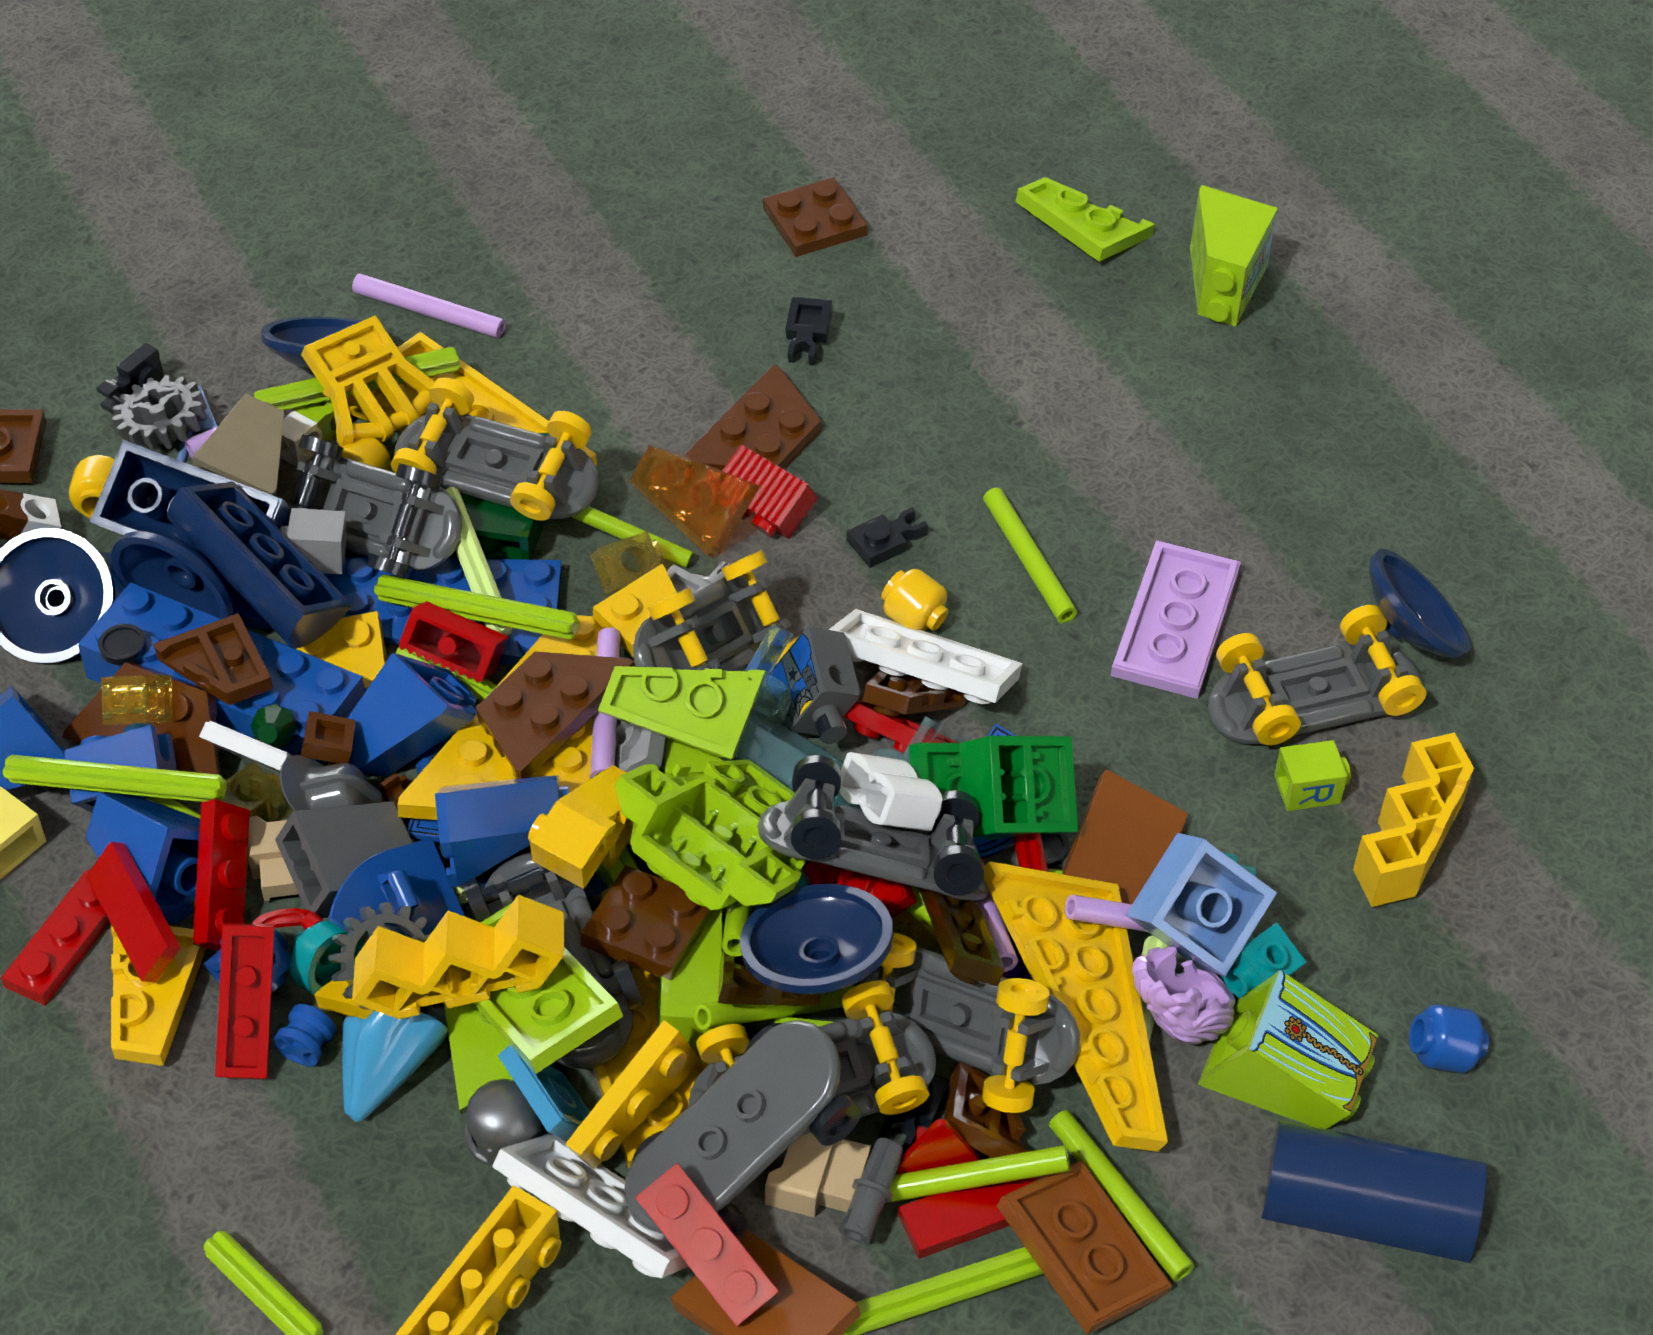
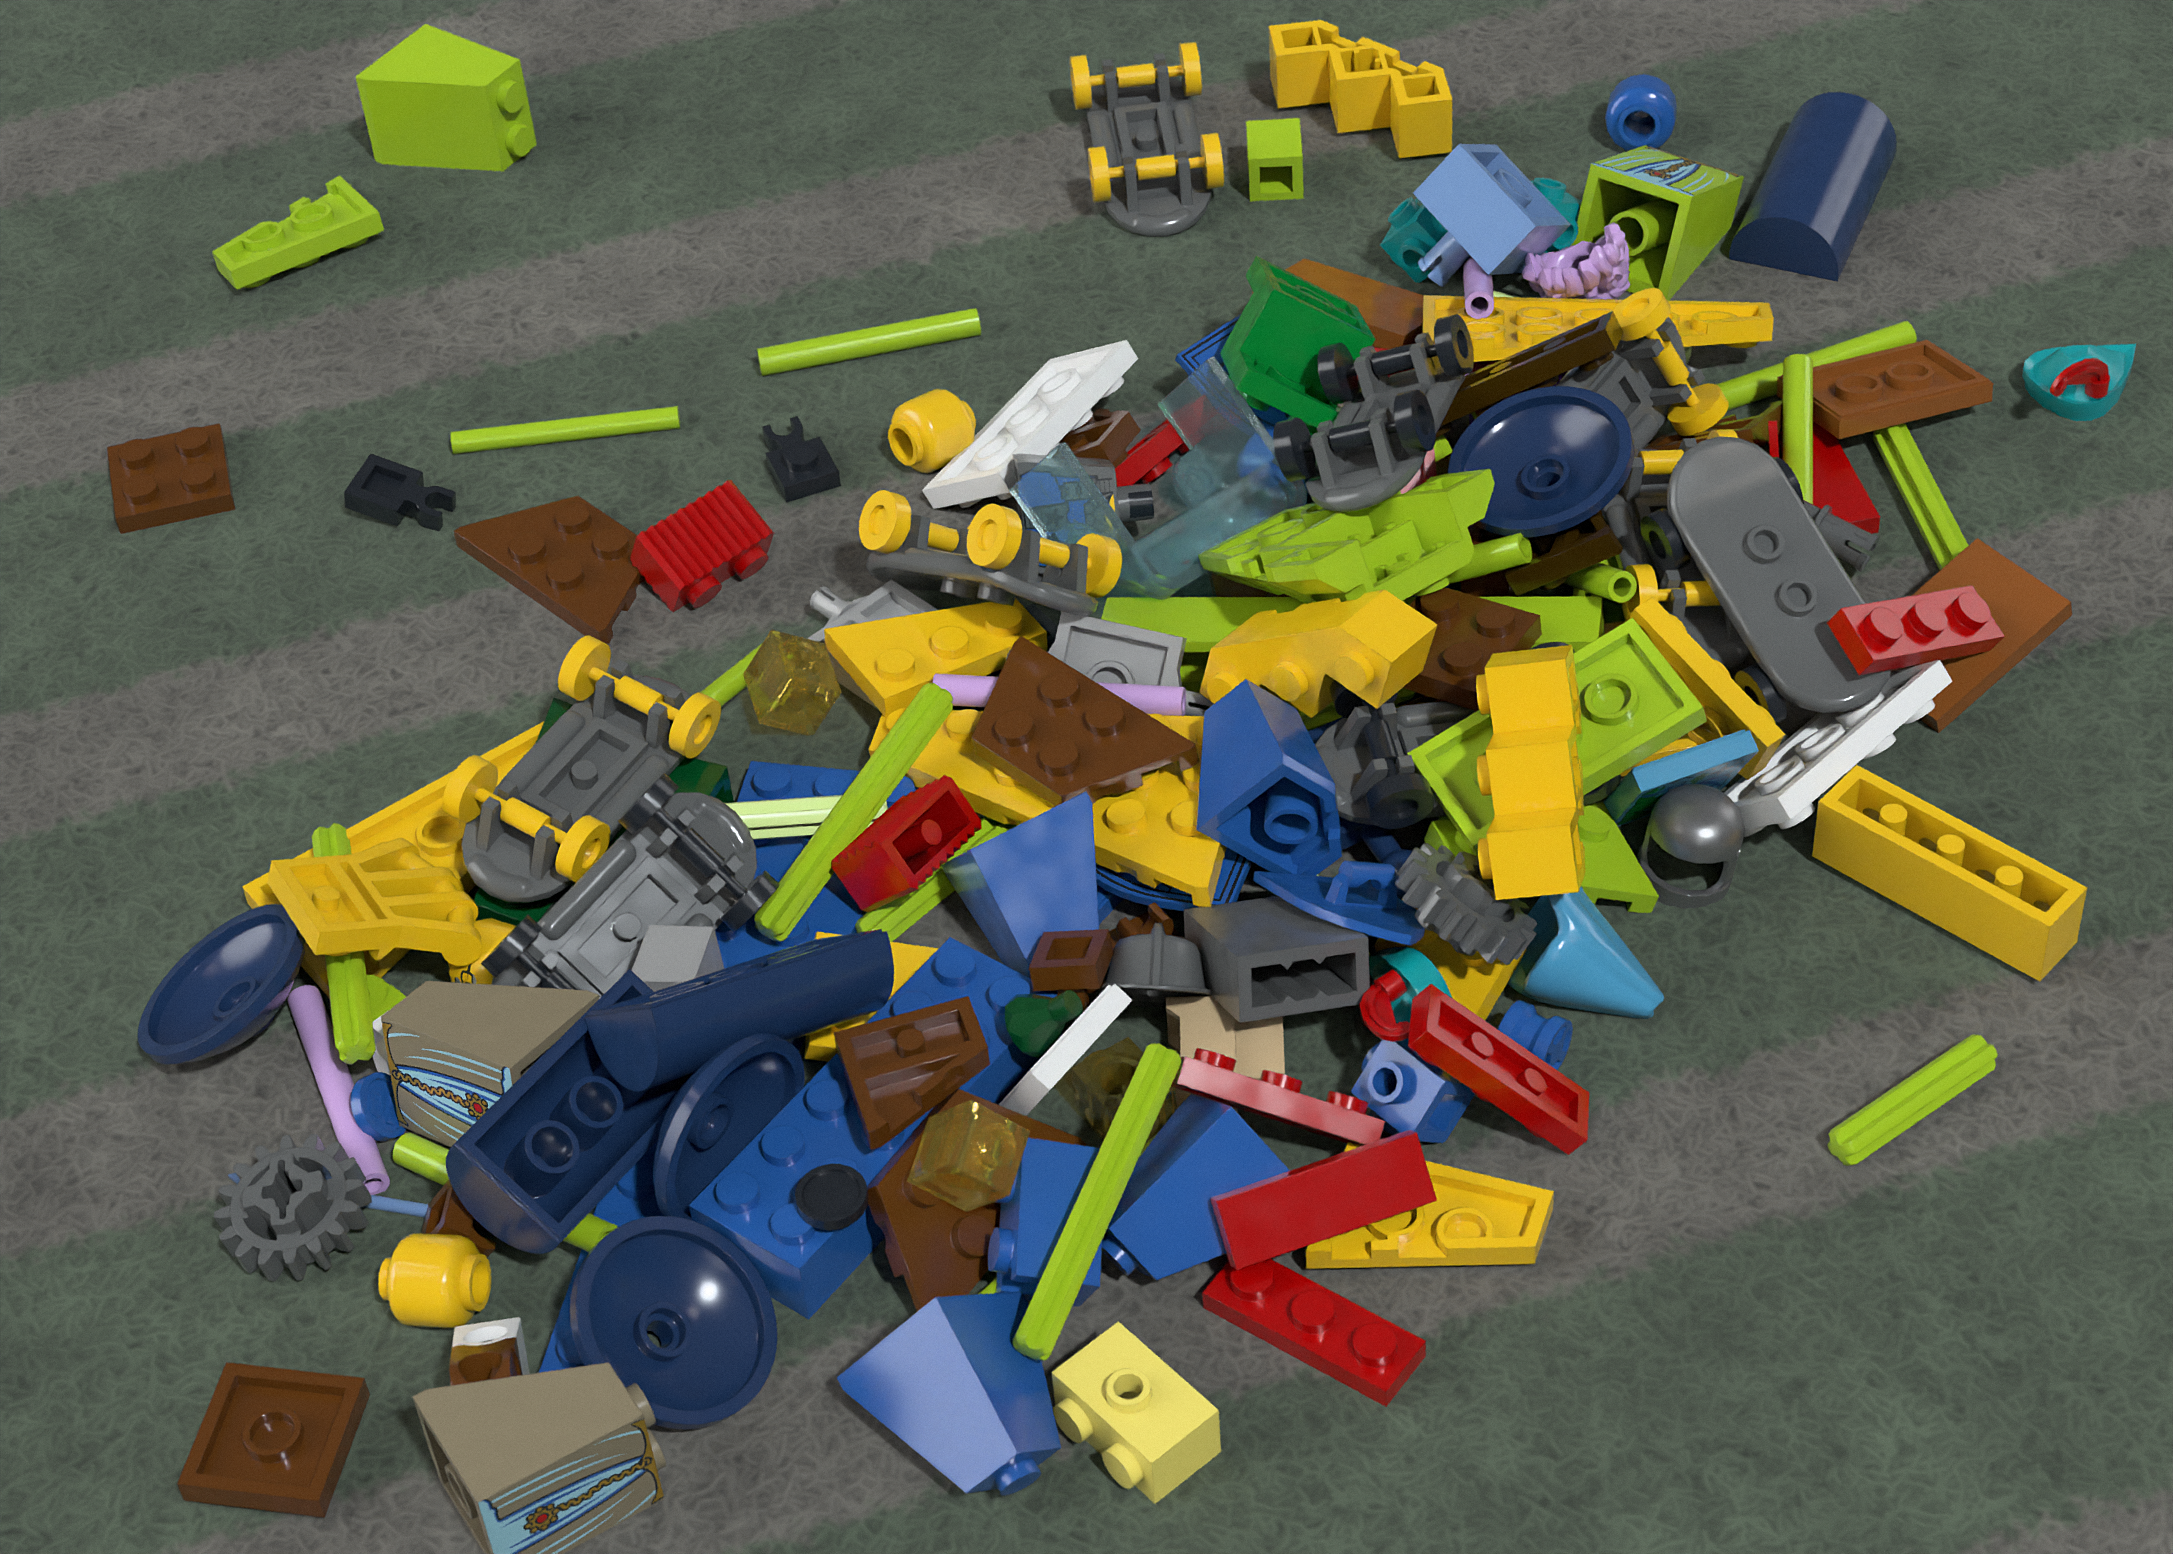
camera: 75 degrees left, 5 degrees down
(133, 370) = (190, 1240): black plate -> none
(428, 305) = (168, 893): lavender piece -> none
(688, 706) = (1130, 568): lime wing -> none
(694, 496) = (694, 605): clear orange wing -> none
(890, 792) = (1328, 389): white brick -> none
(899, 405) = (565, 430): none -> lime bar
(1176, 619) = (1005, 239): lavender tile -> none
(1416, 607) = (1049, 43): dark blue dish -> none

